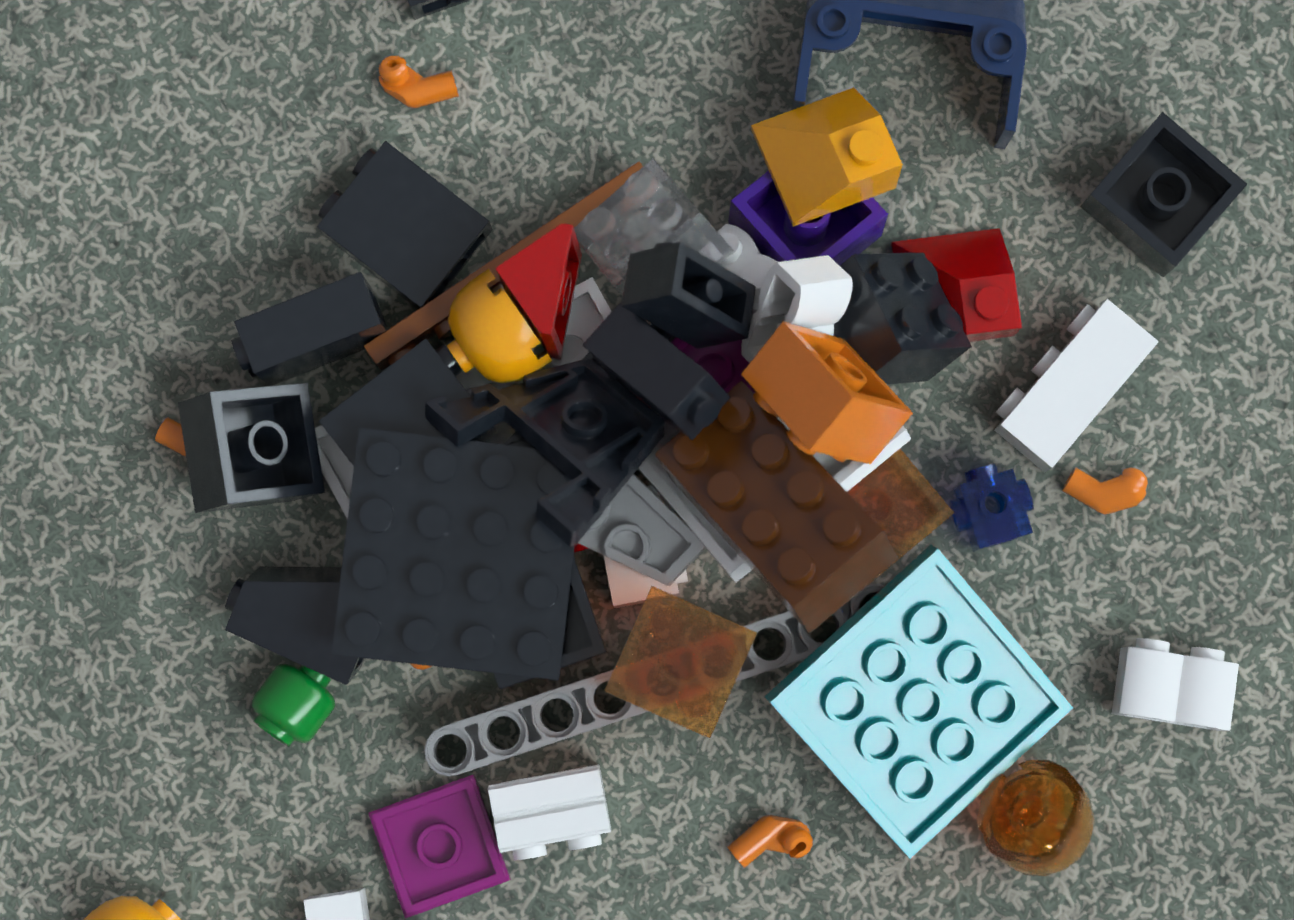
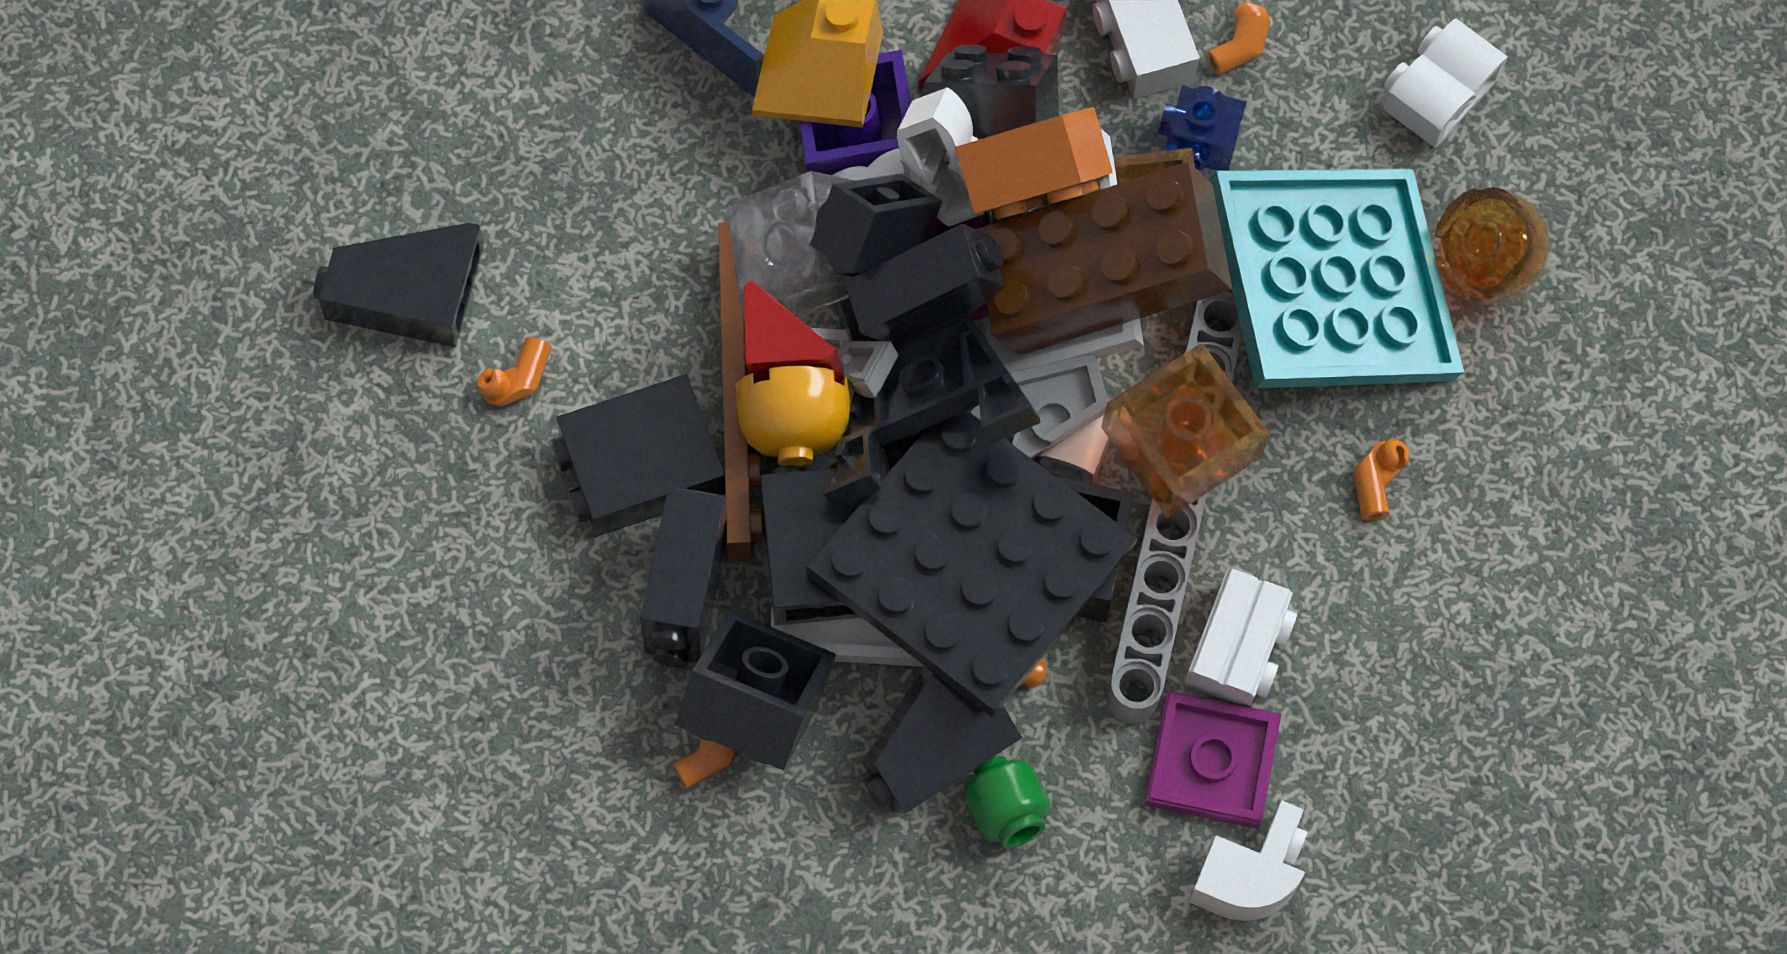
camera: 65 degrees left, 15 degrees down
(573, 365) = (867, 364): none -> light grey tile

